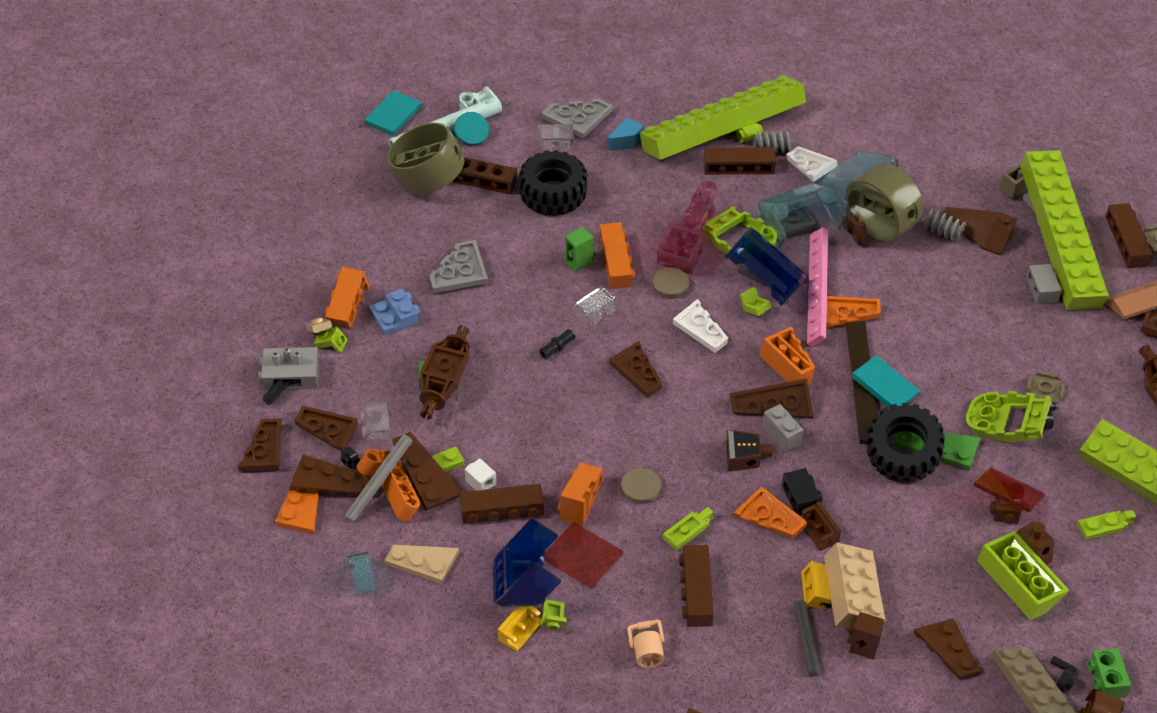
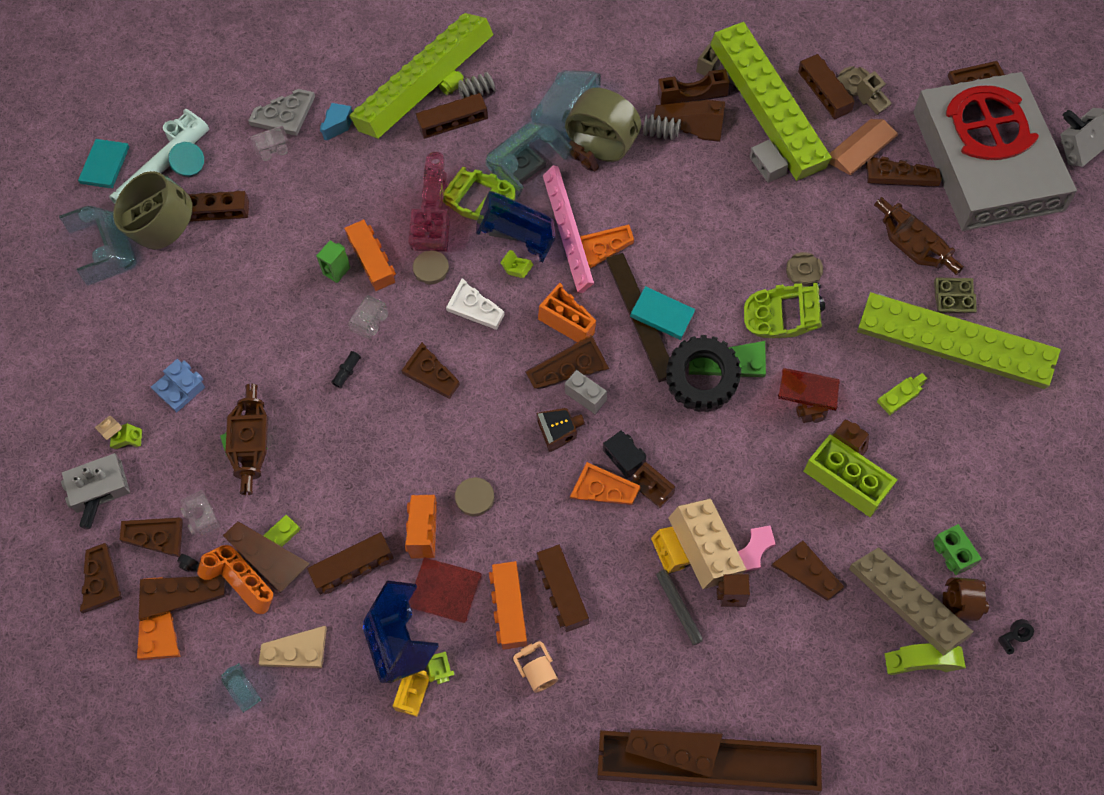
camera: 15 degrees left, 15 degrees up
(346, 297) = (125, 387): orange wedge -> none
(372, 189) = (113, 257): none -> clear light blue windscreen
(378, 478) = (223, 581): light grey axle -> none
(459, 269) = (225, 317): light grey plate -> none
(480, 475) = (320, 540): white brick -> none
(553, 167) = (279, 178): black tyre -> none
(640, 583) = (509, 605): none -> orange brick
(687, 528) = (533, 529): lime hinge -> none
(811, 163) = (519, 99): white wing -> none
(909, 608) = (760, 541): none -> bright pink tile
(1011, 202) = (712, 85): none -> reddish brown arch
(1065, 680) = (921, 570): black plate -> none

